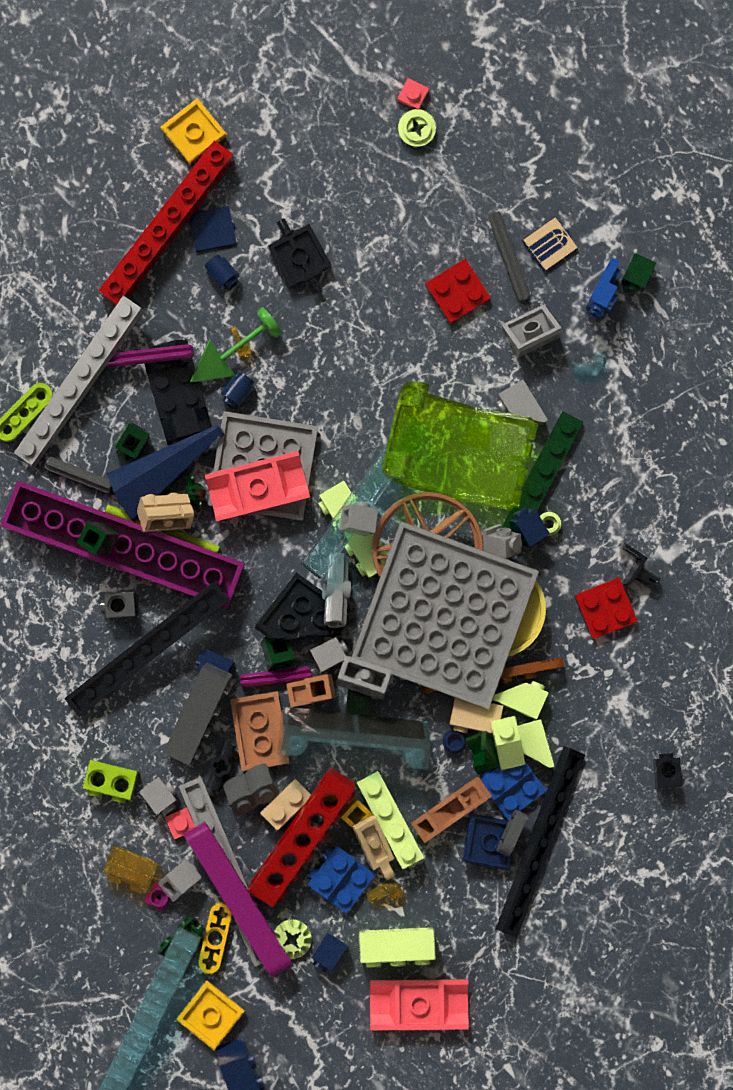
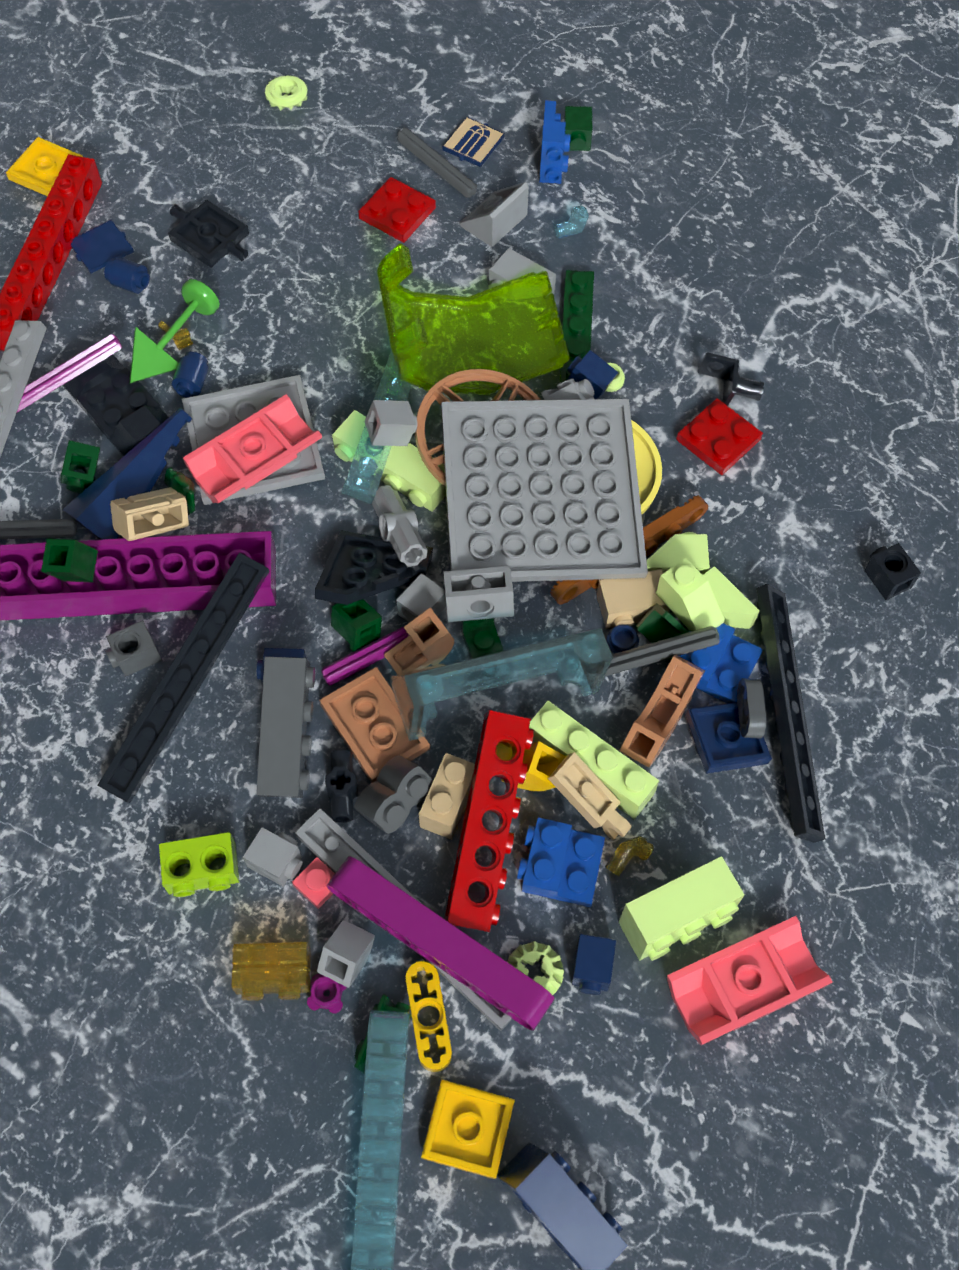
camera: 25 degrees left, 20 degrees down
(413, 94) = (268, 68): coral plate -> none
(469, 767) = (663, 649): none -> dark grey axle

